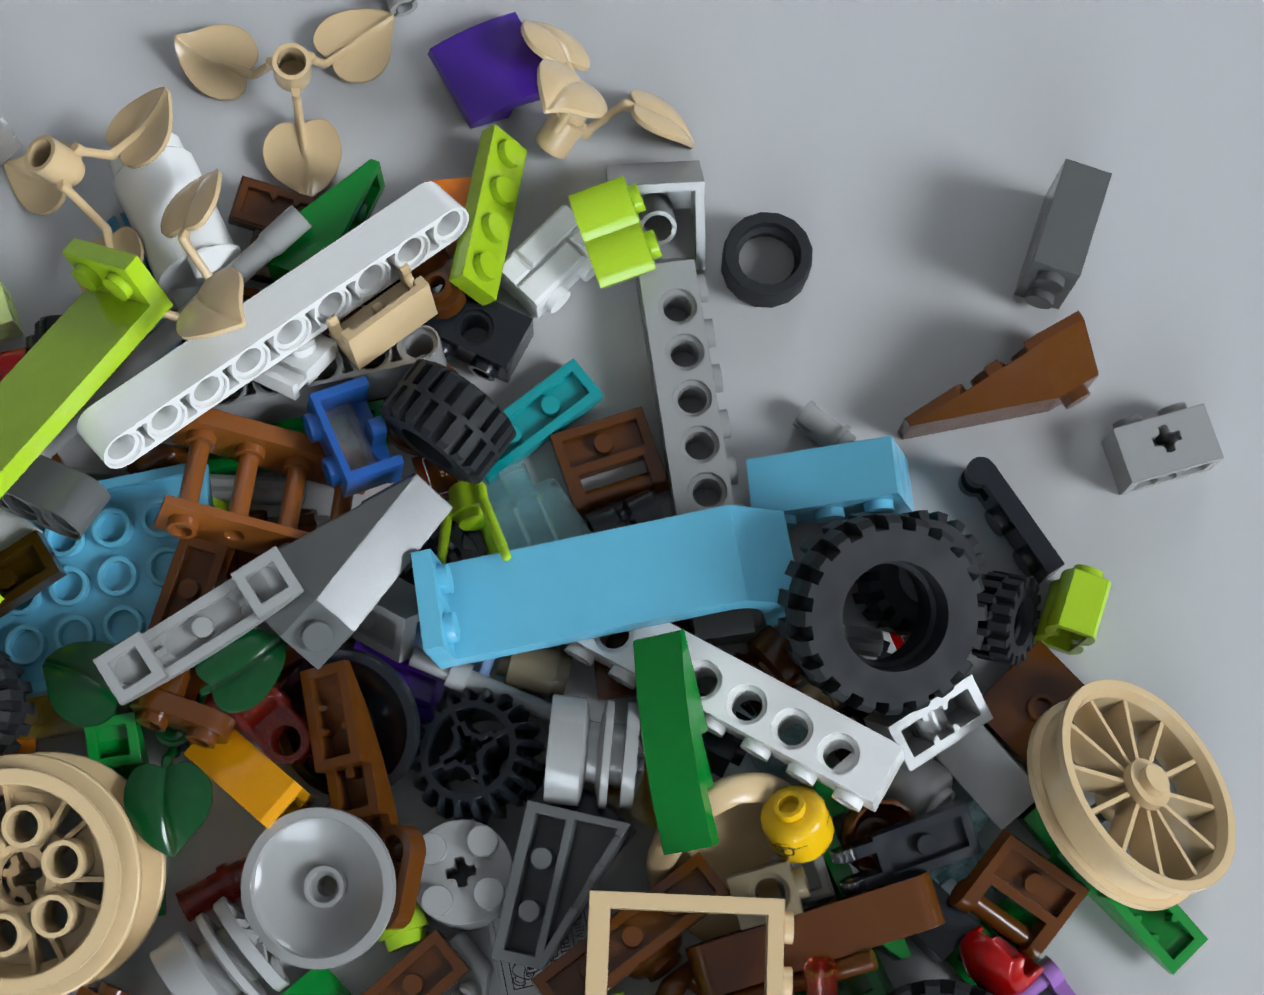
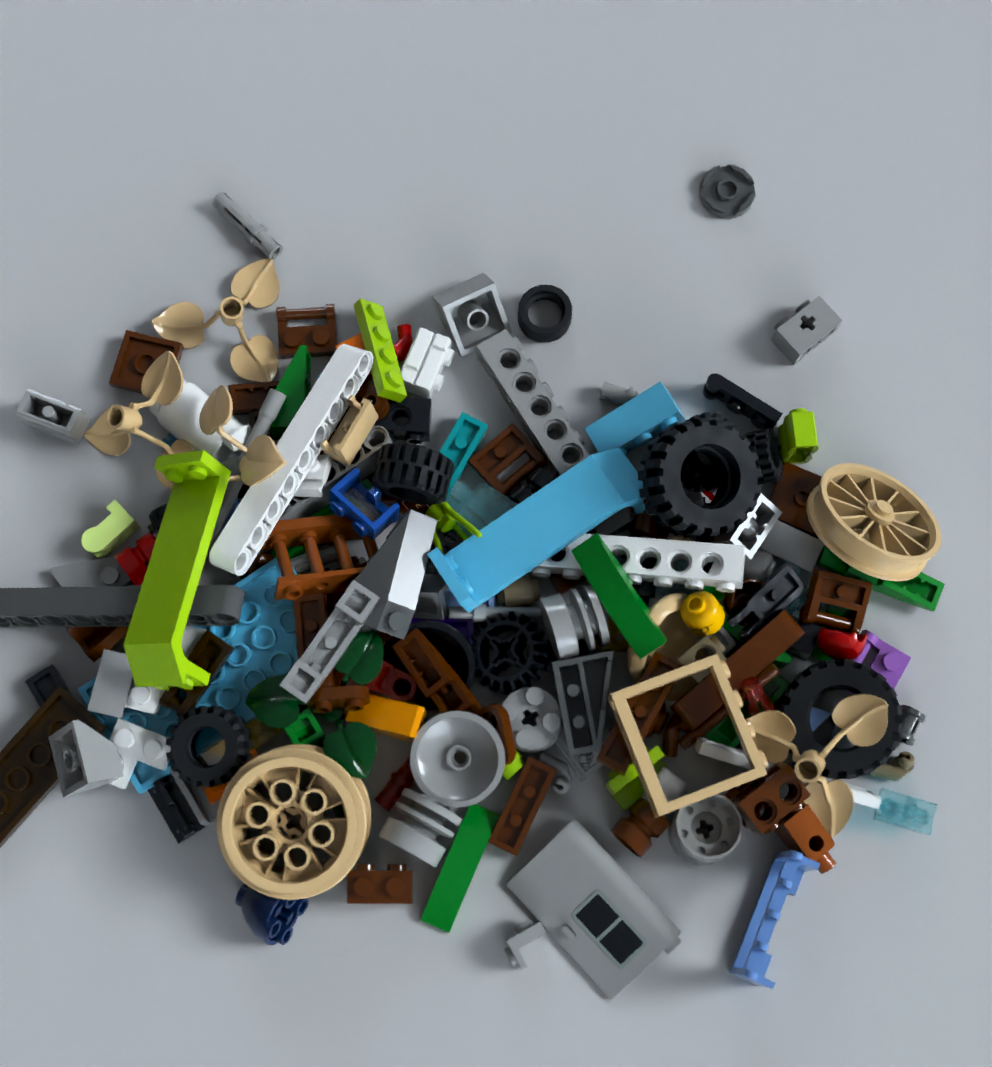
camera: 20 degrees left, 0 degrees up
(131, 74) = (136, 356): none -> reddish brown plate
(402, 159) = (318, 339): none -> reddish brown plate
(488, 70) = (342, 268): dark purple slope -> none
(527, 222) = (404, 341): none -> red arm
(573, 100) = (402, 264): tan plant -> none
(614, 231) = (457, 331): lime brick -> none
(1047, 372) = (725, 315): reddish brown wedge -> none
(1062, 235) = (703, 233): dark grey brick -> none
(1141, 186) = (727, 191): none -> dark grey tile

